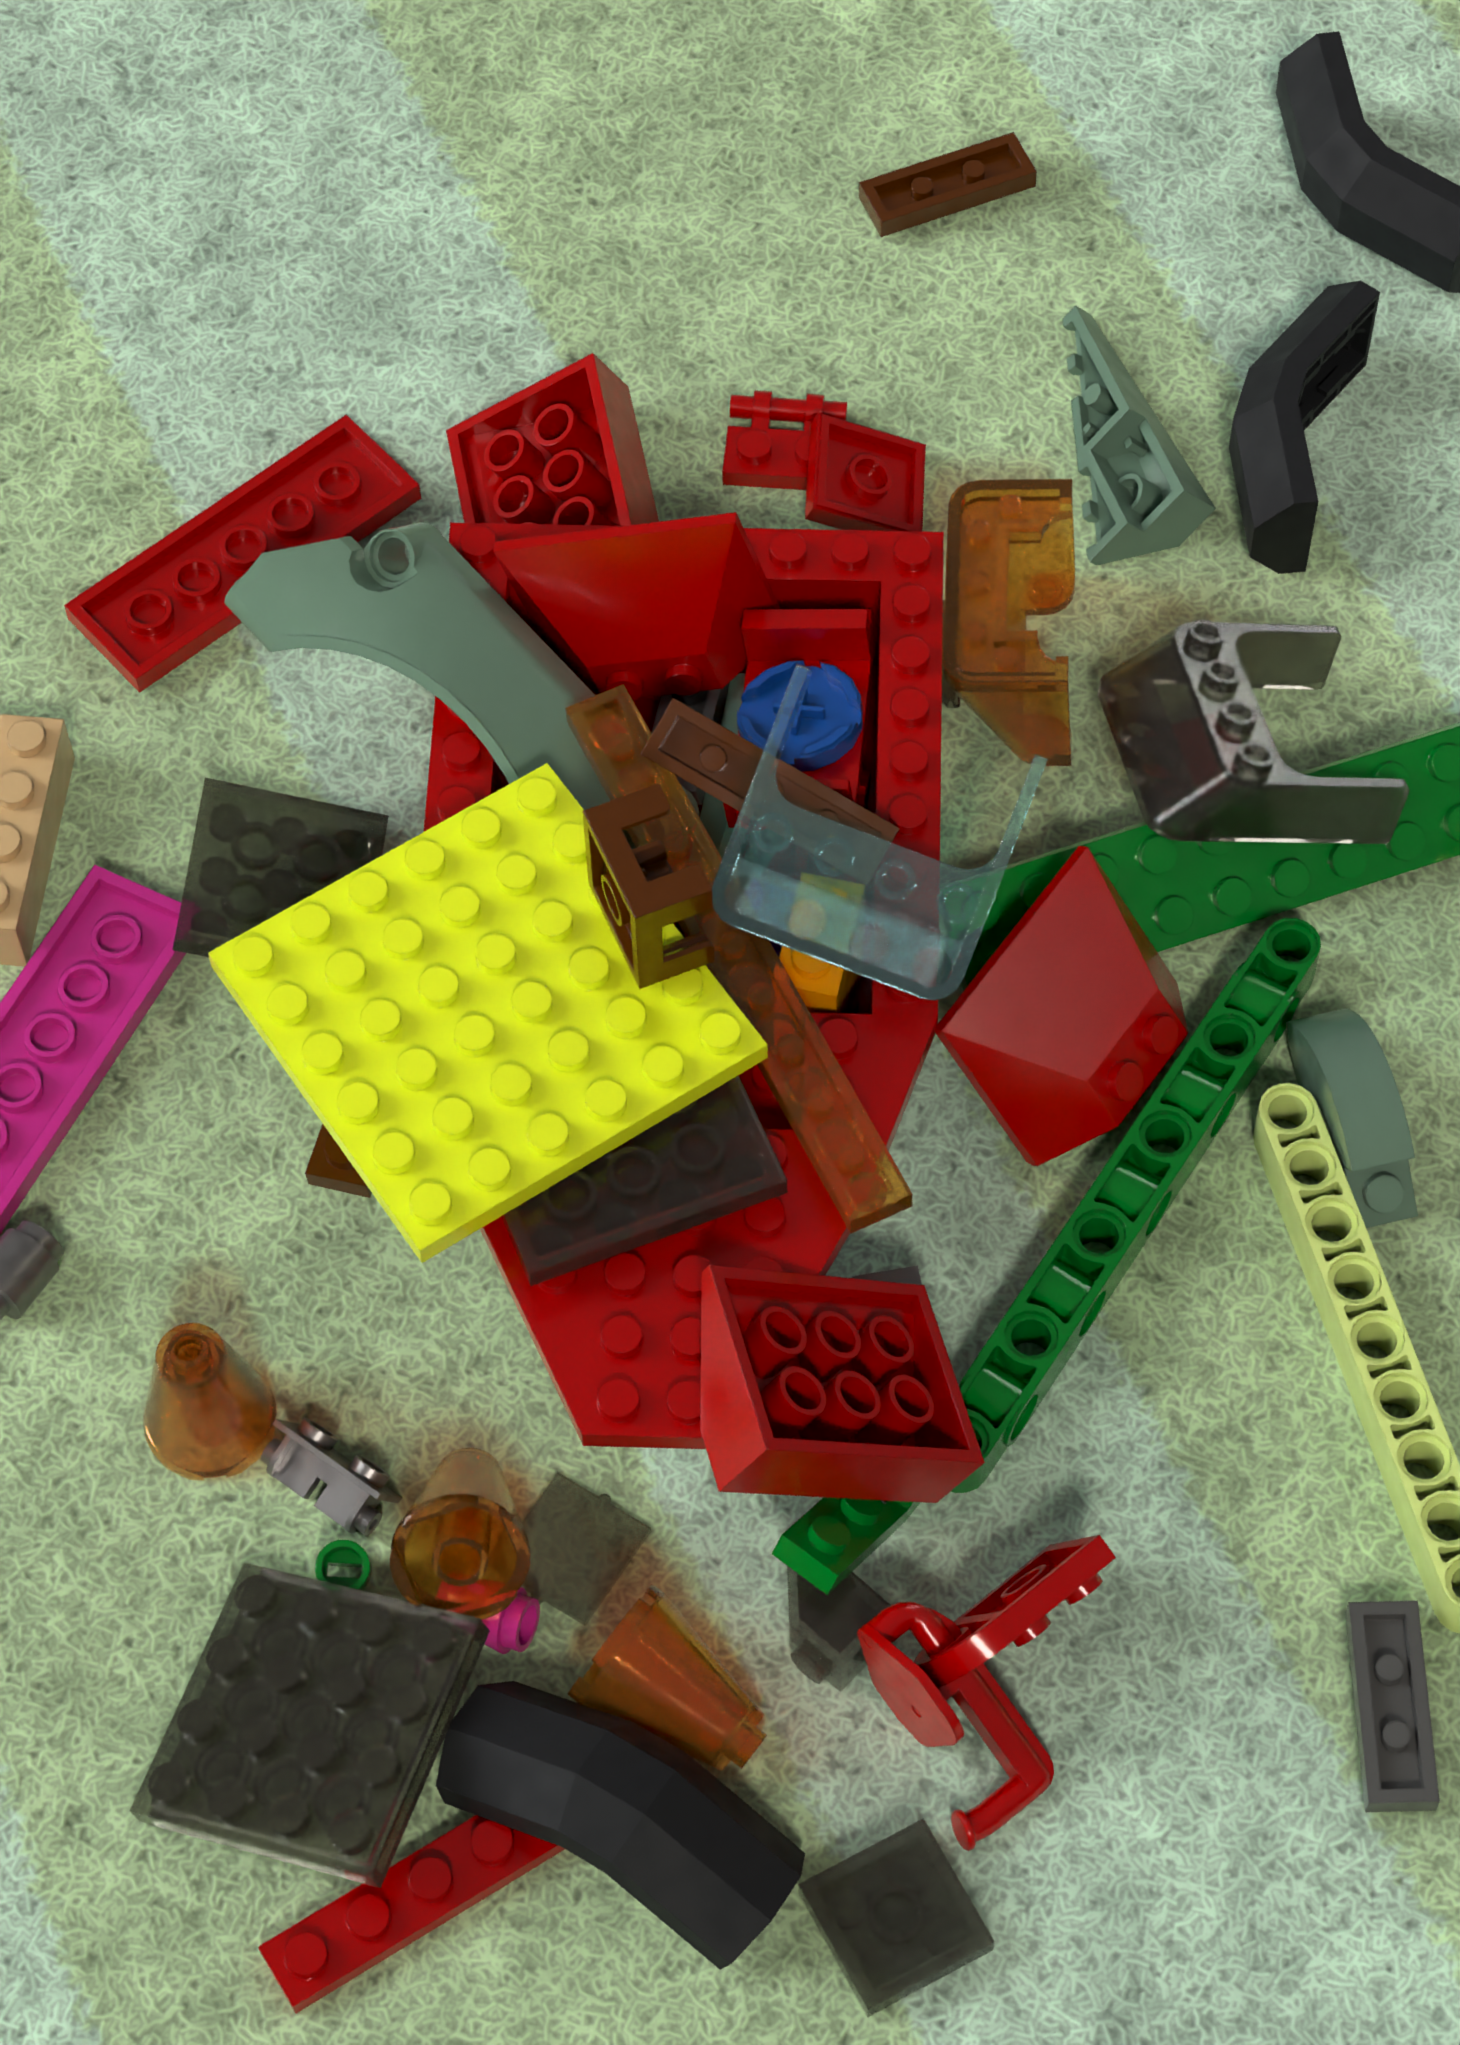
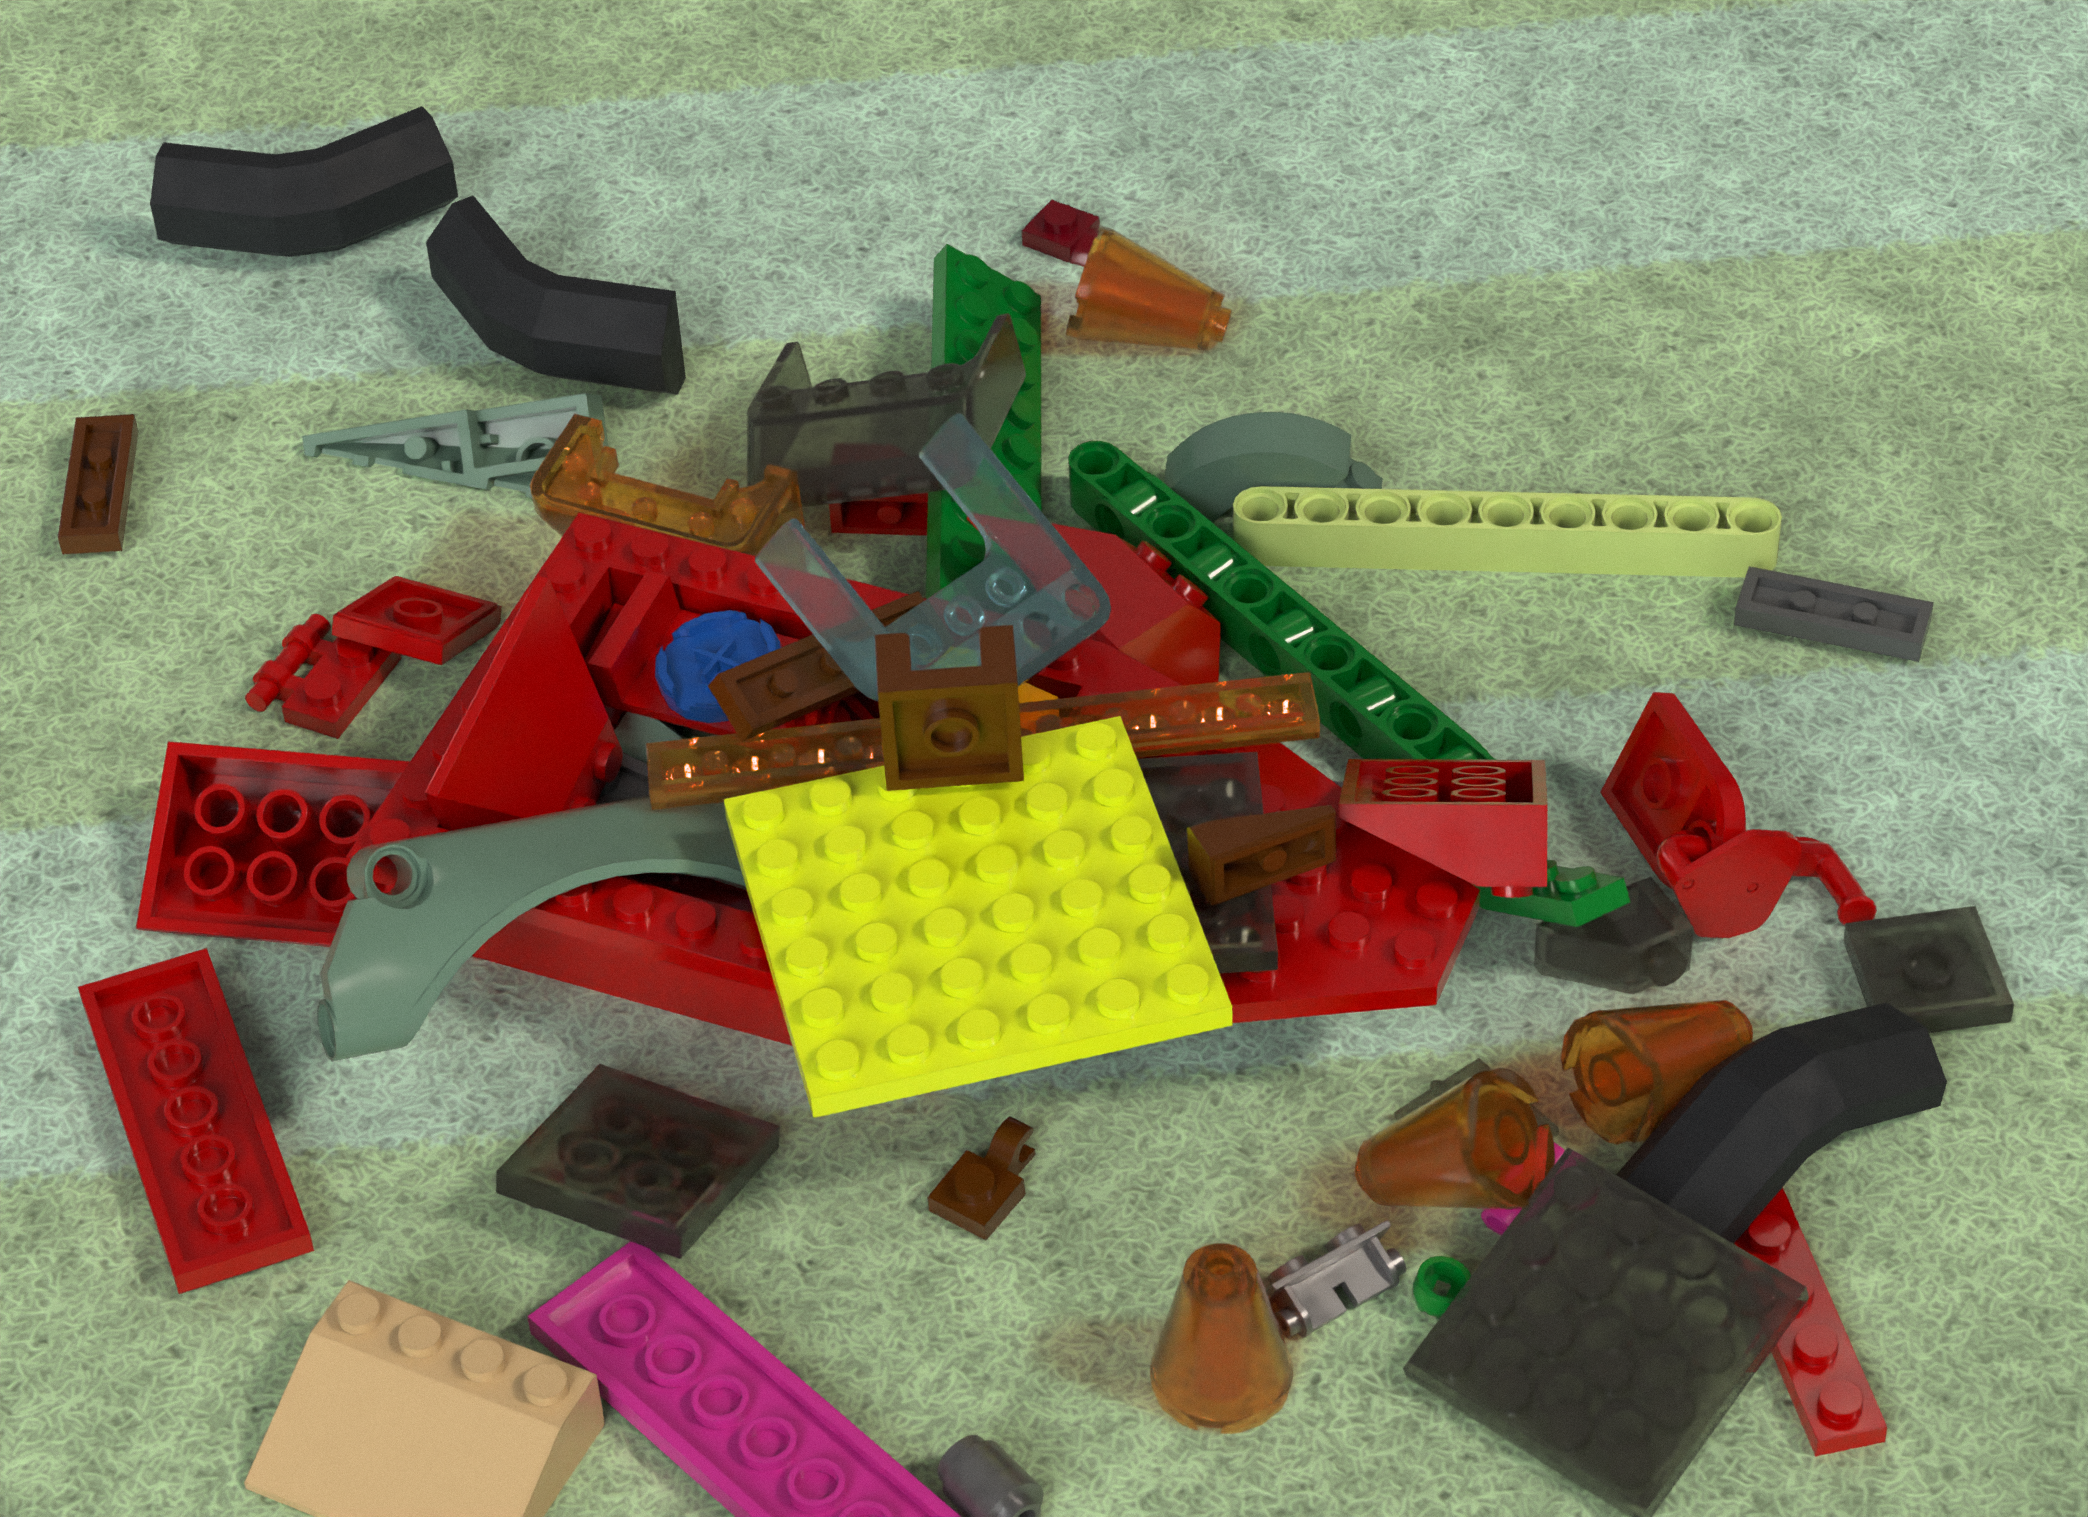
camera: 70 degrees left, 15 degrees down
(610, 1204) = (1259, 850): none -> reddish brown slope

